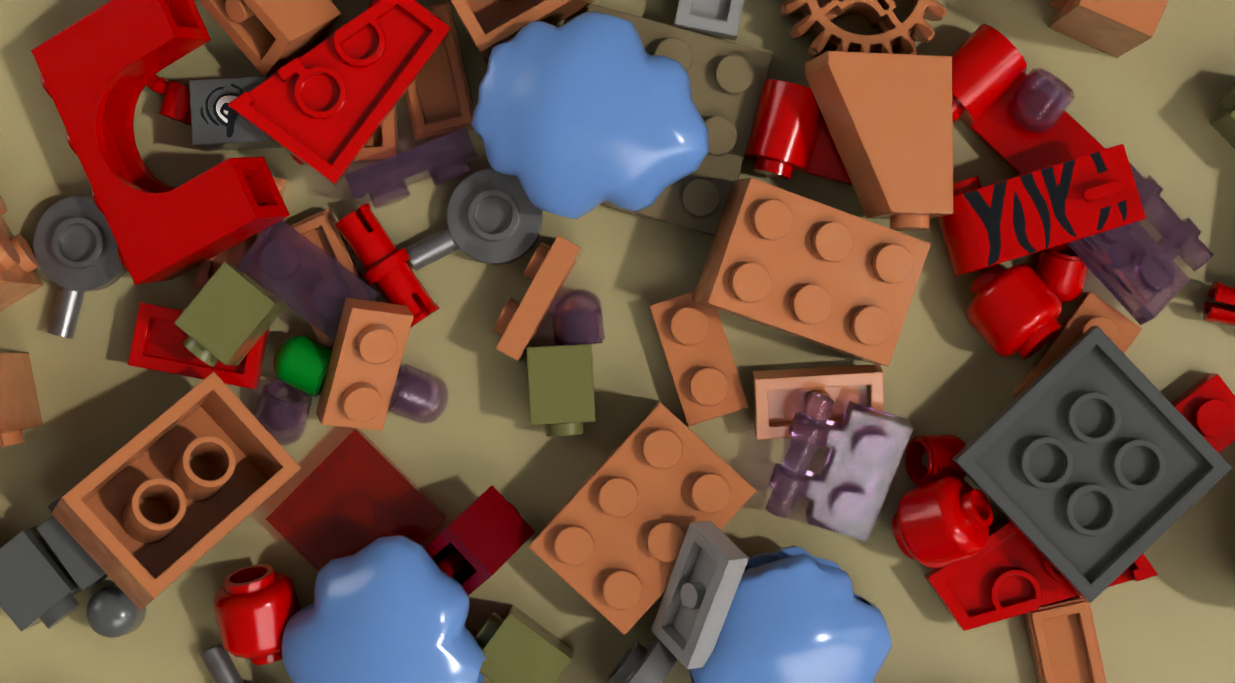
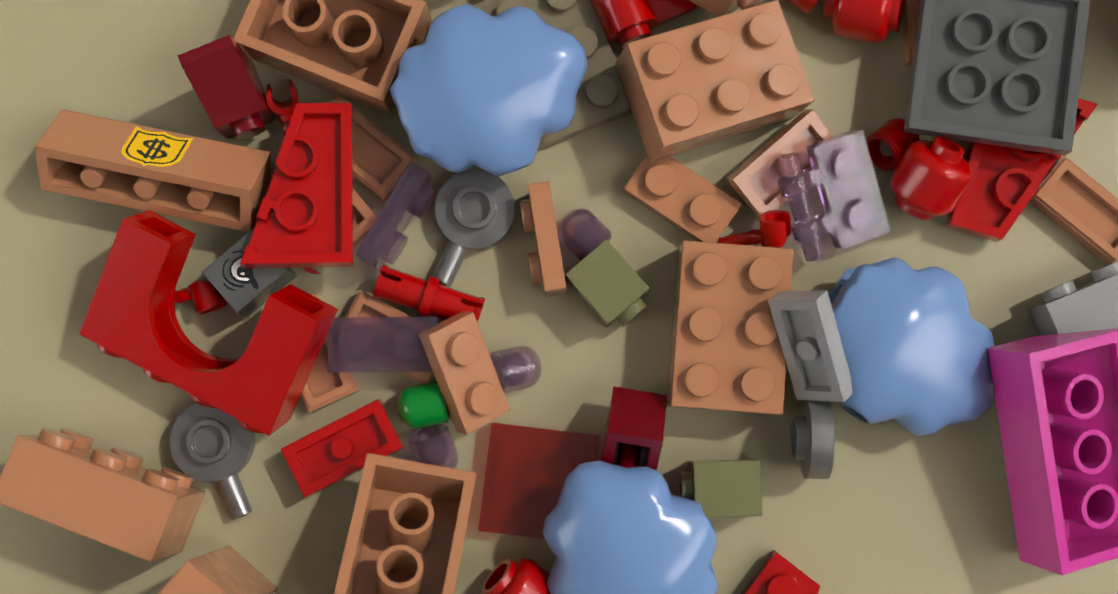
camera: 35 degrees left, 5 degrees down
(228, 317) = (348, 408): olive brick -> none
(753, 457) = (773, 231): none -> red hand

